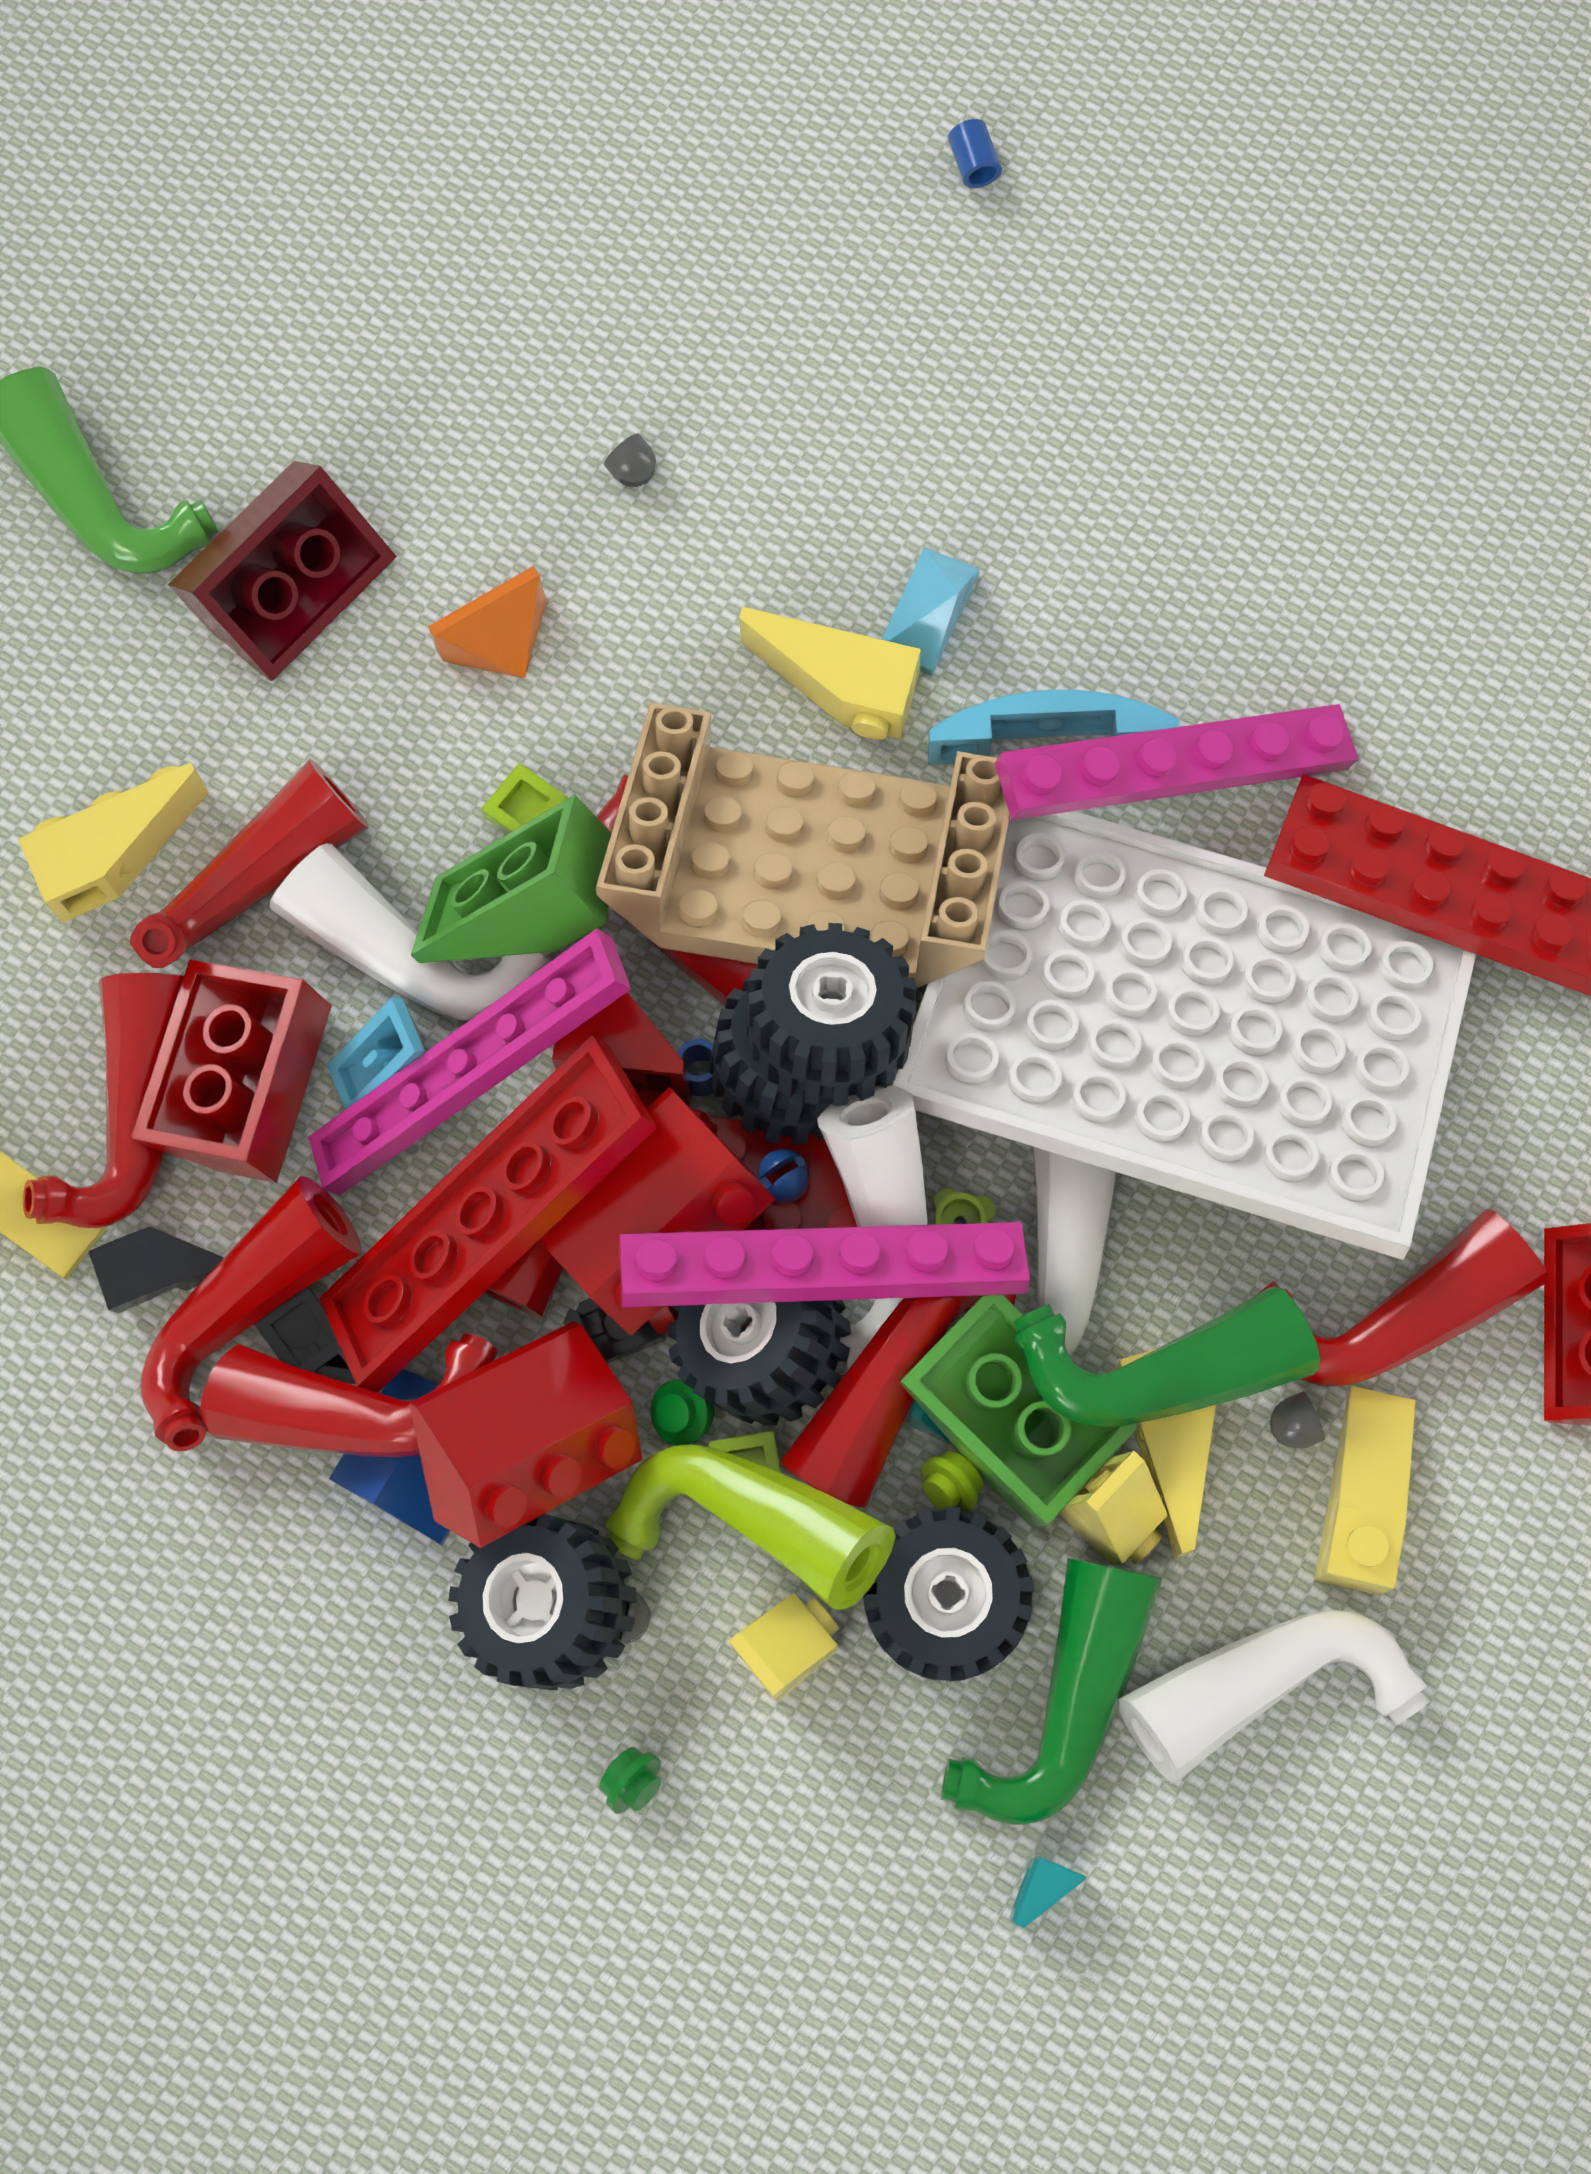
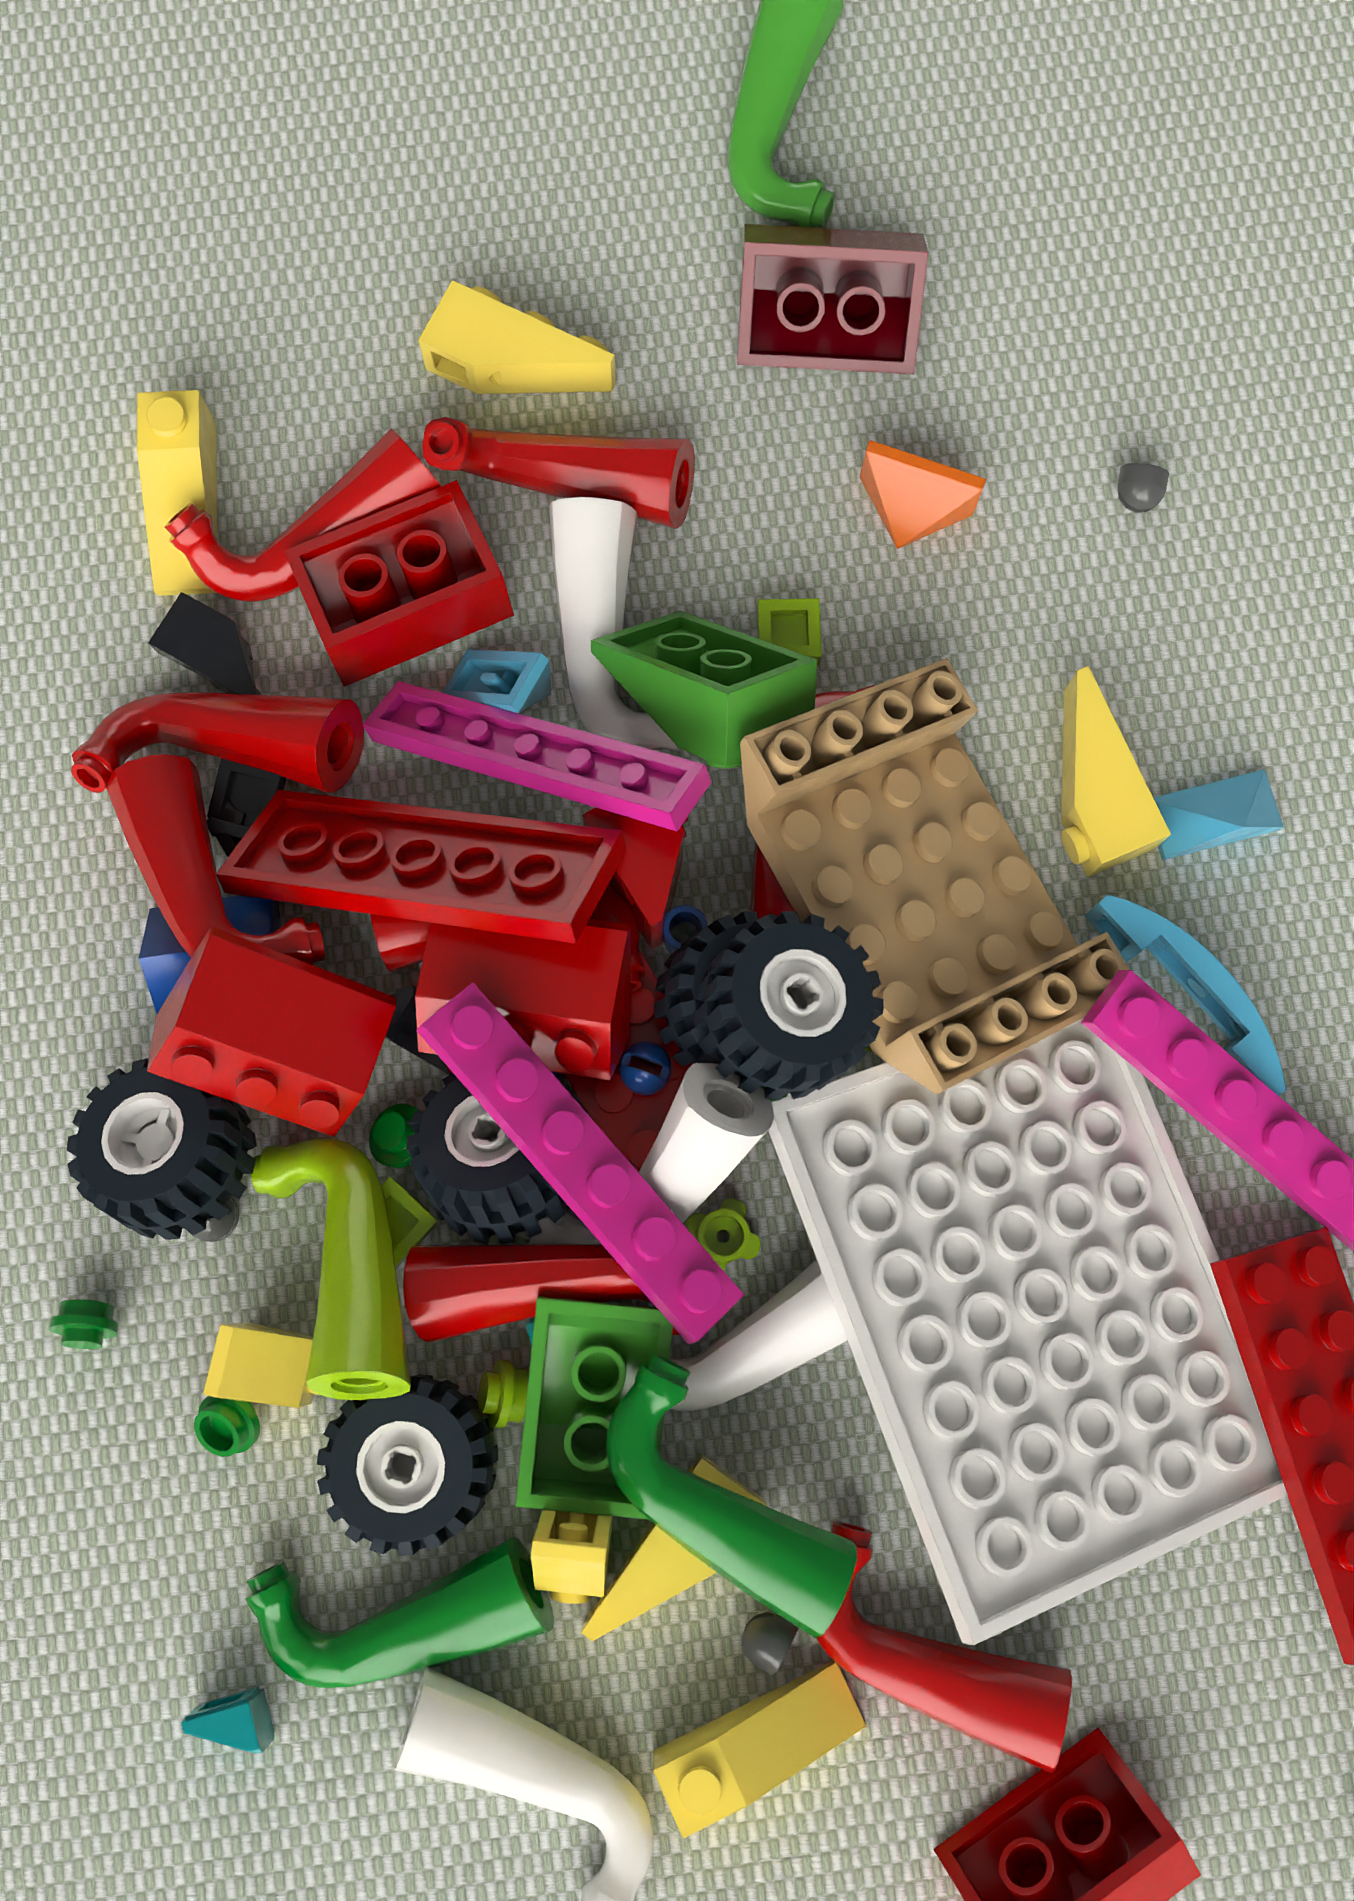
camera: 45 degrees right, 5 degrees up
(803, 1722) = (226, 1426): none -> green plate

